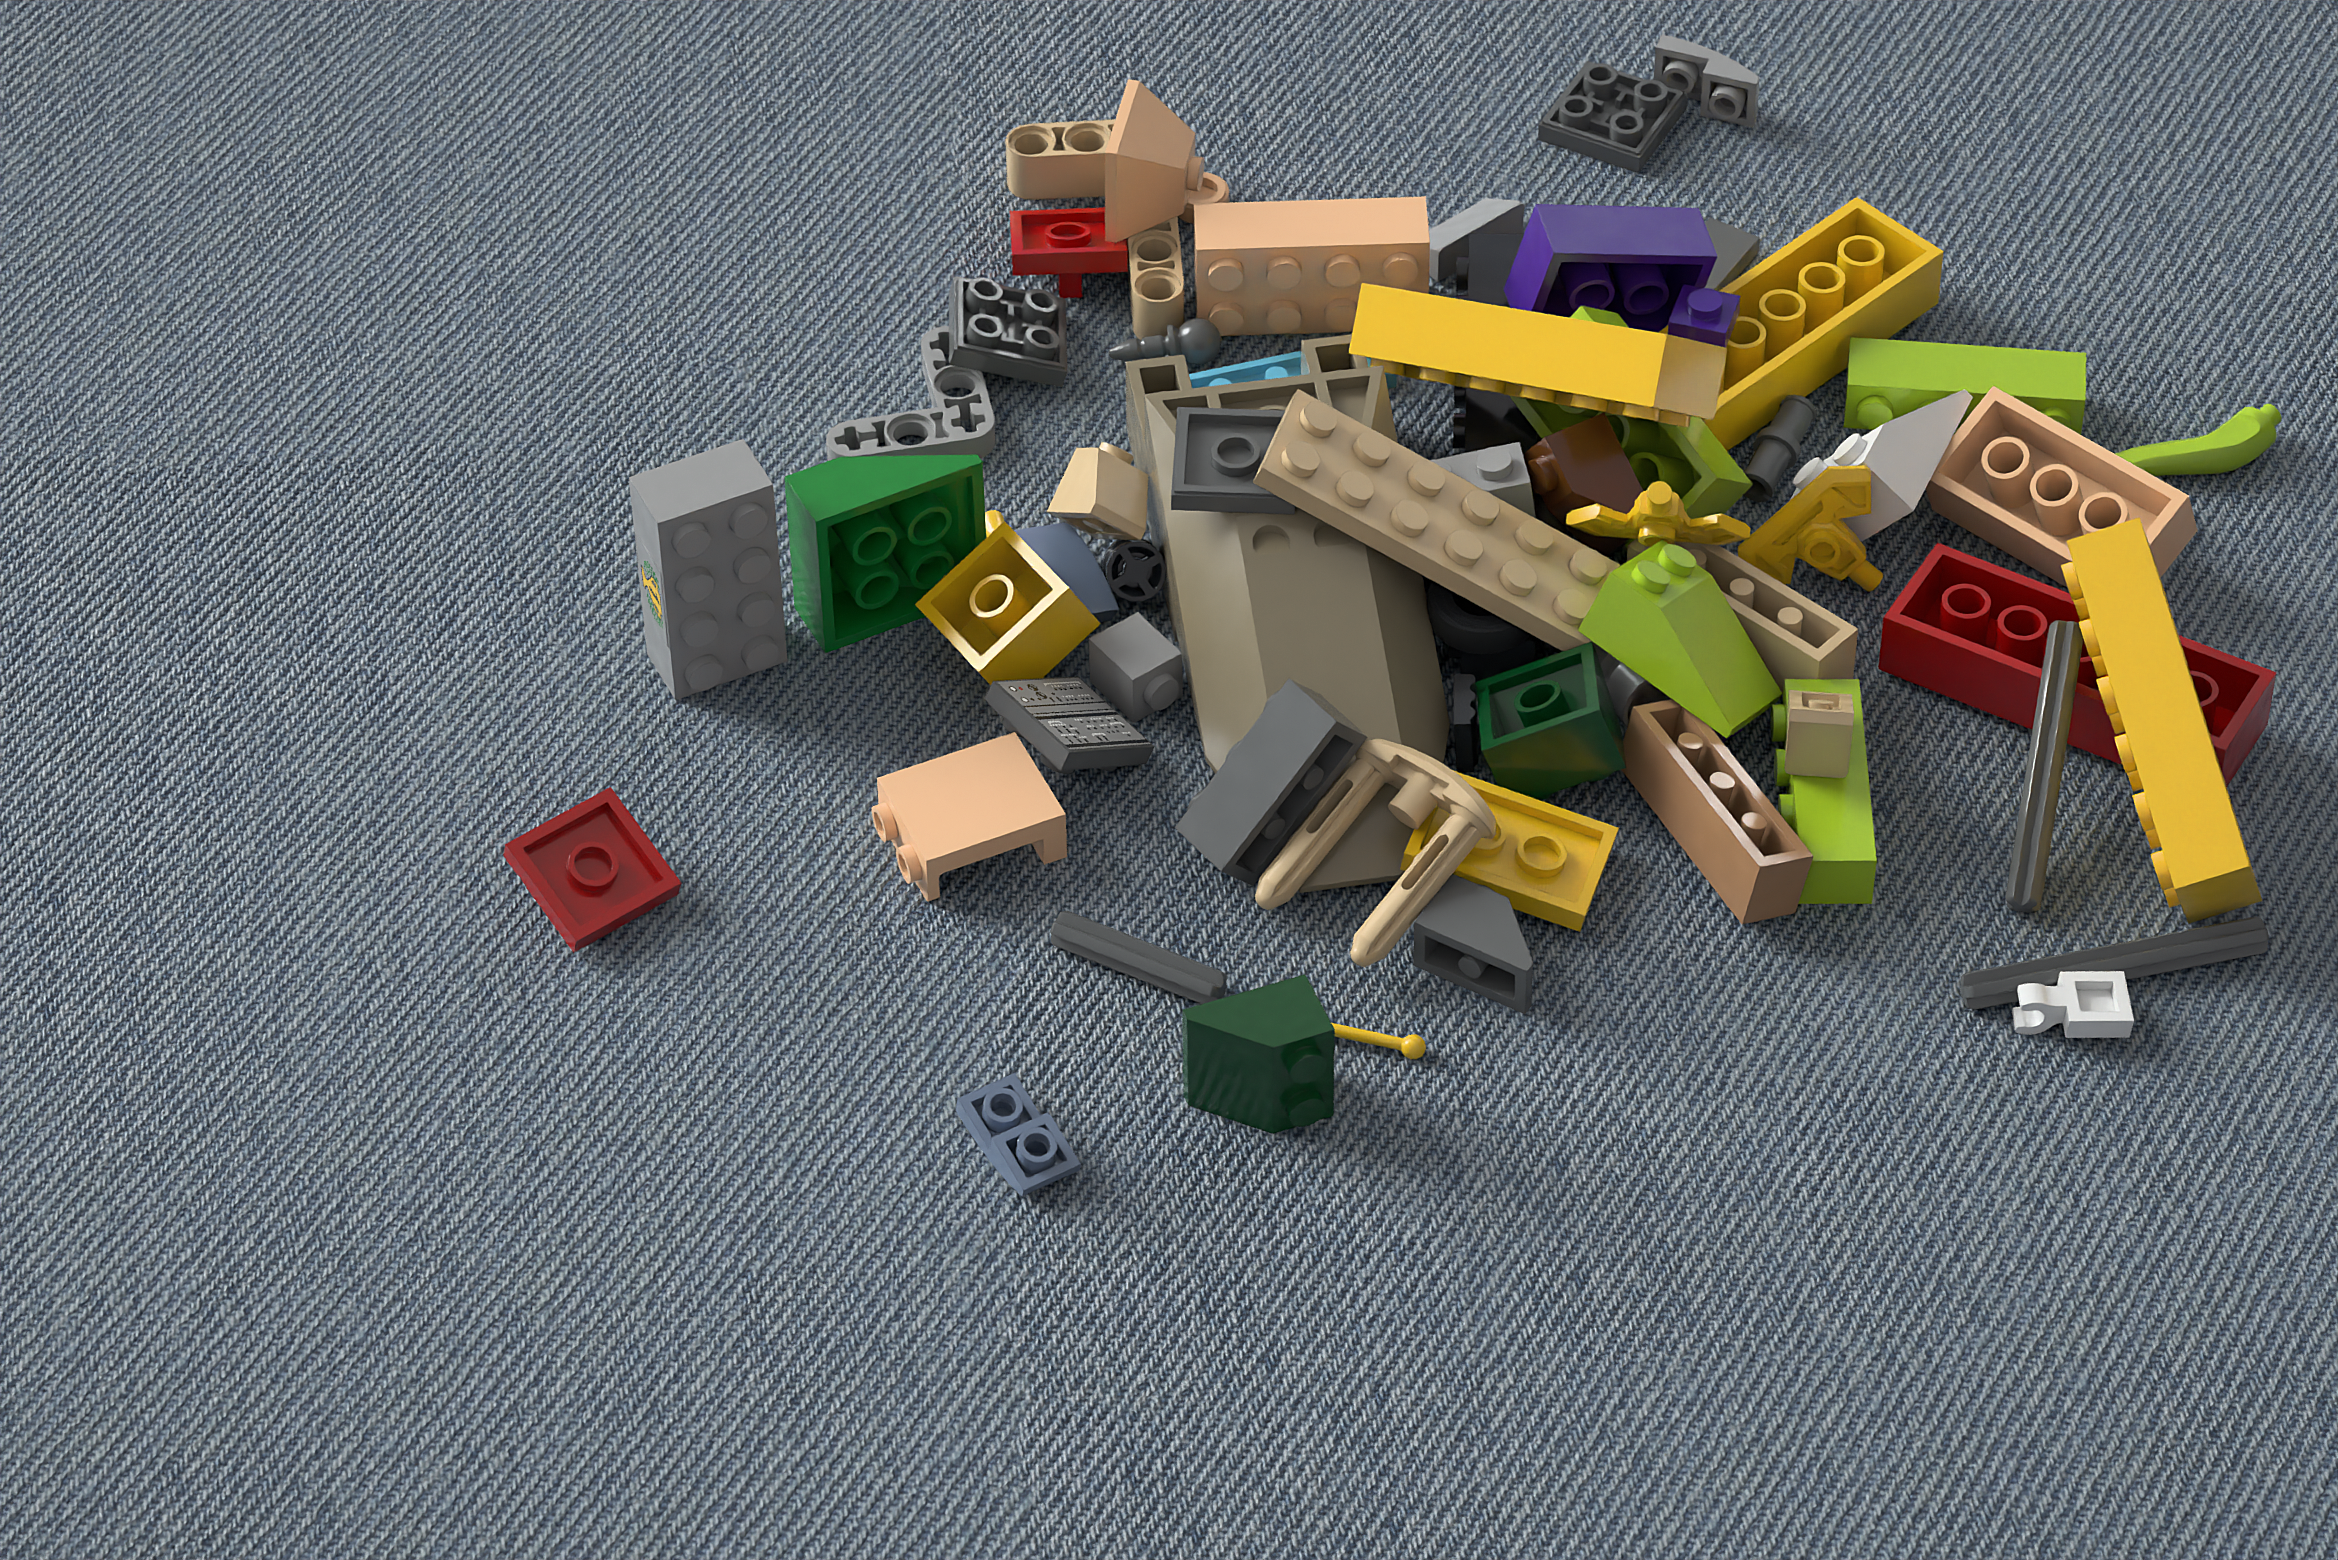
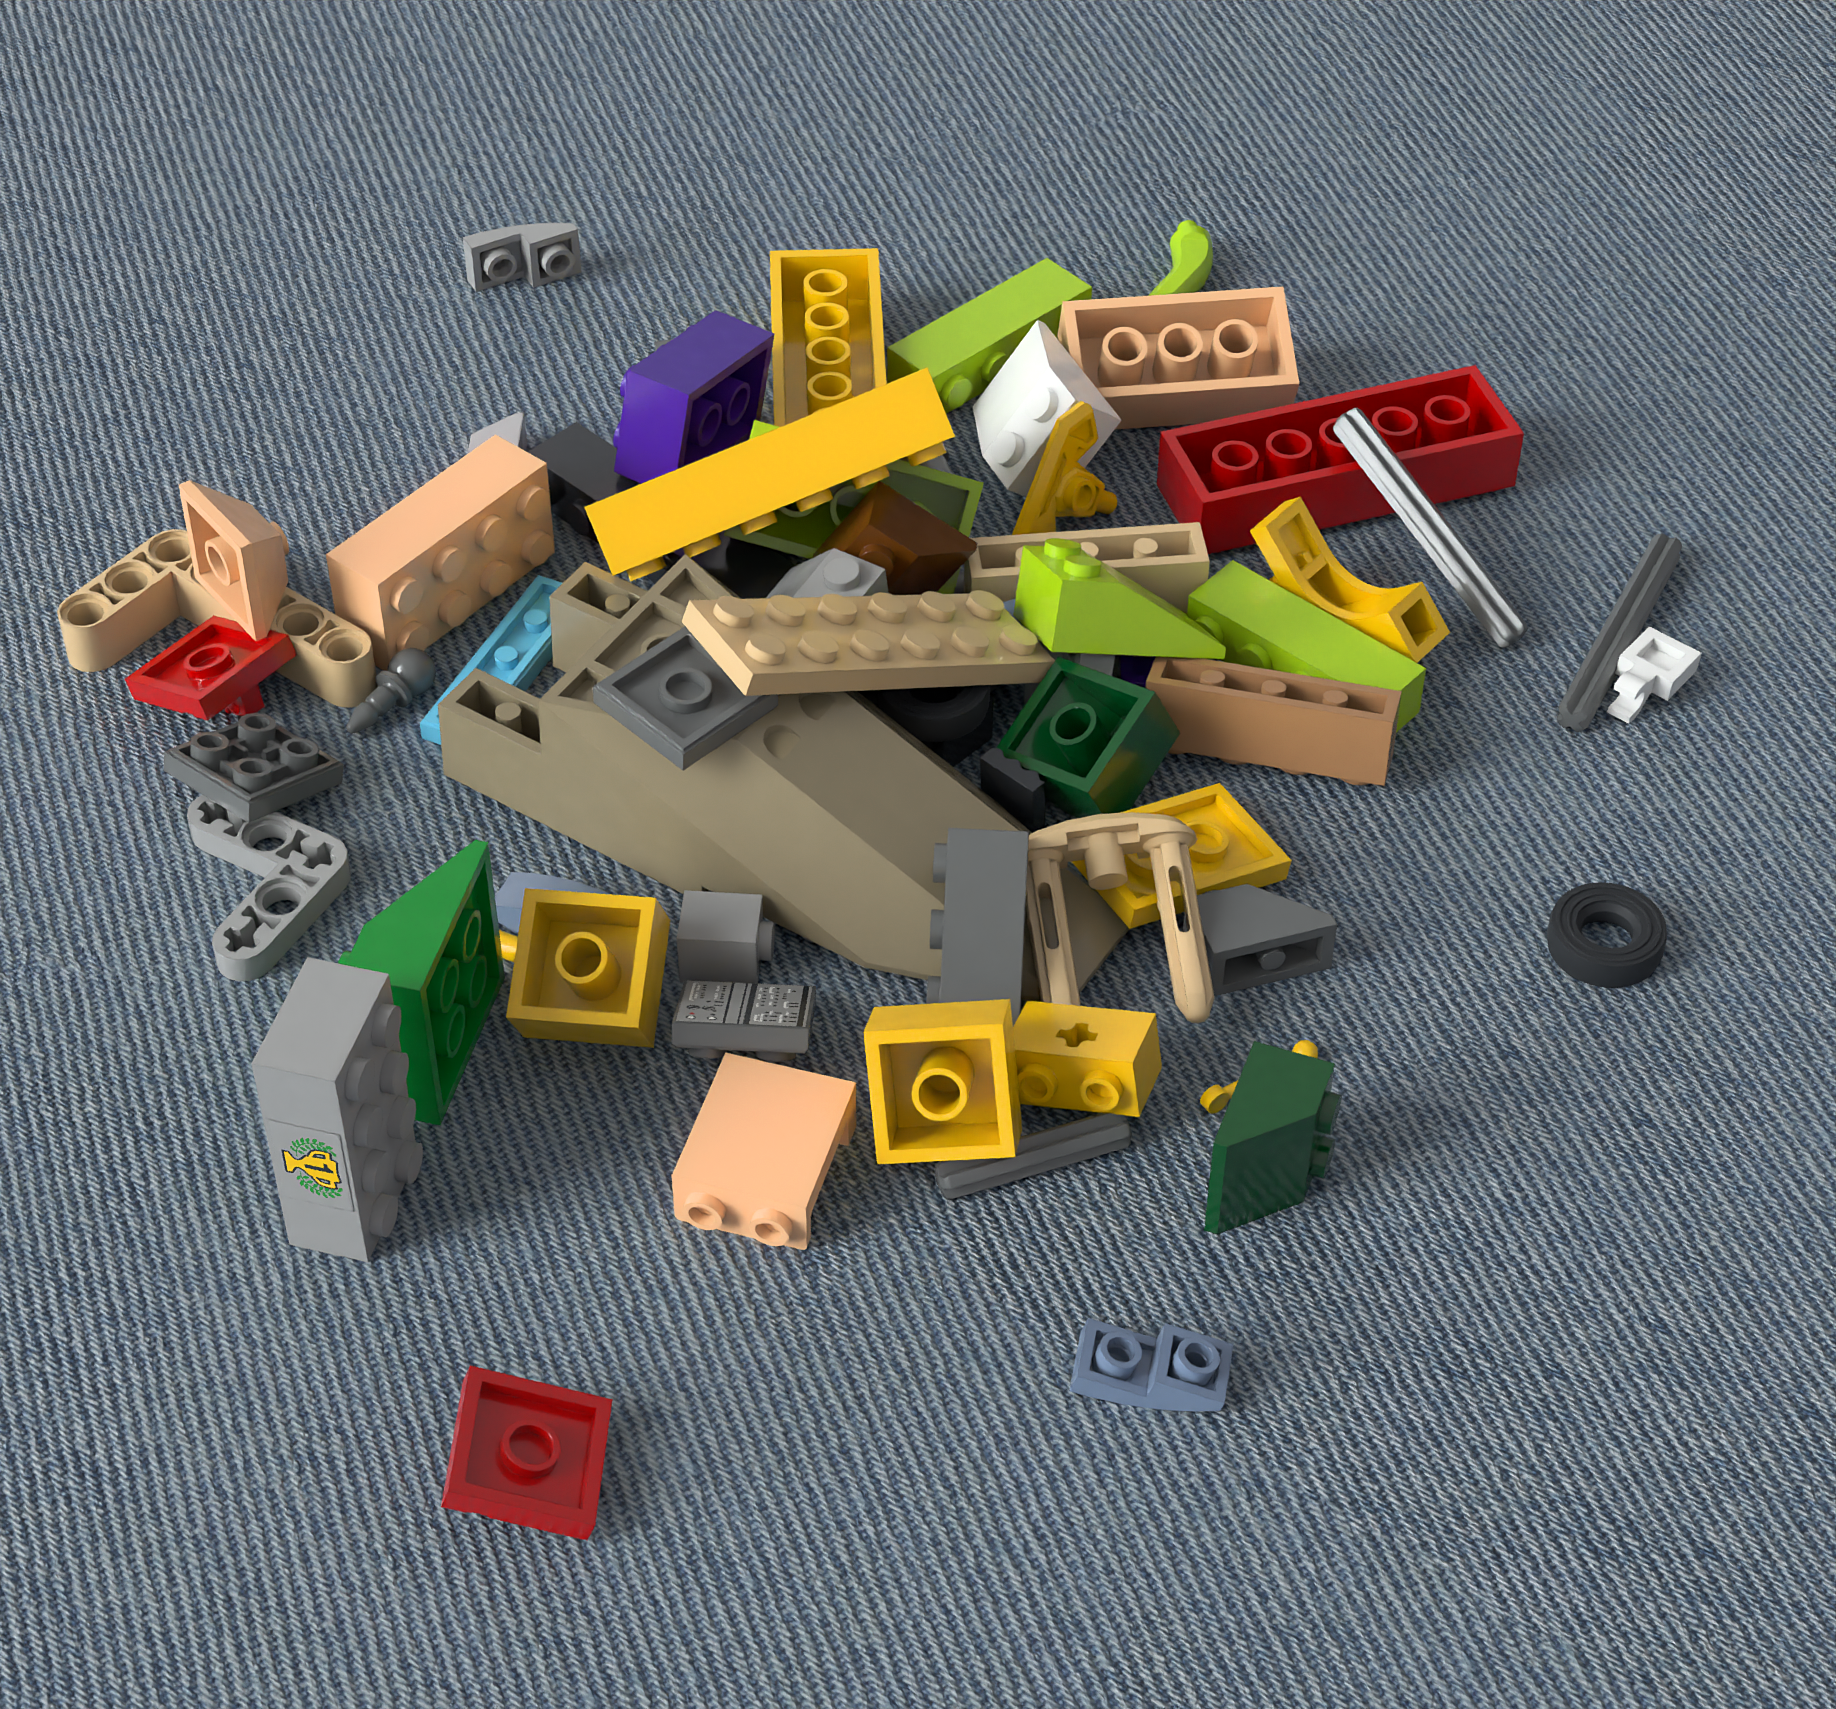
camera: 50 degrees left, 0 degrees up
(1103, 494) = (542, 822): tan slope -> none
(1107, 852) = (943, 1081): none -> yellow brick
(1140, 577) = (628, 855): black wheel -> none
(1235, 919) = (1086, 1057): none -> yellow brick
(1613, 116) = (480, 323): dark grey tile -> none
(1655, 517) = (1000, 534): yellow piece -> none
(1704, 315) = (797, 390): dark purple plate -> none
(1737, 1177) = (1600, 964): none -> black tyre
(1819, 733) = (1293, 598): tan slope -> none
(1905, 759) = (1306, 567): none -> yellow arch
(2166, 732) = (1501, 430): yellow brick -> none

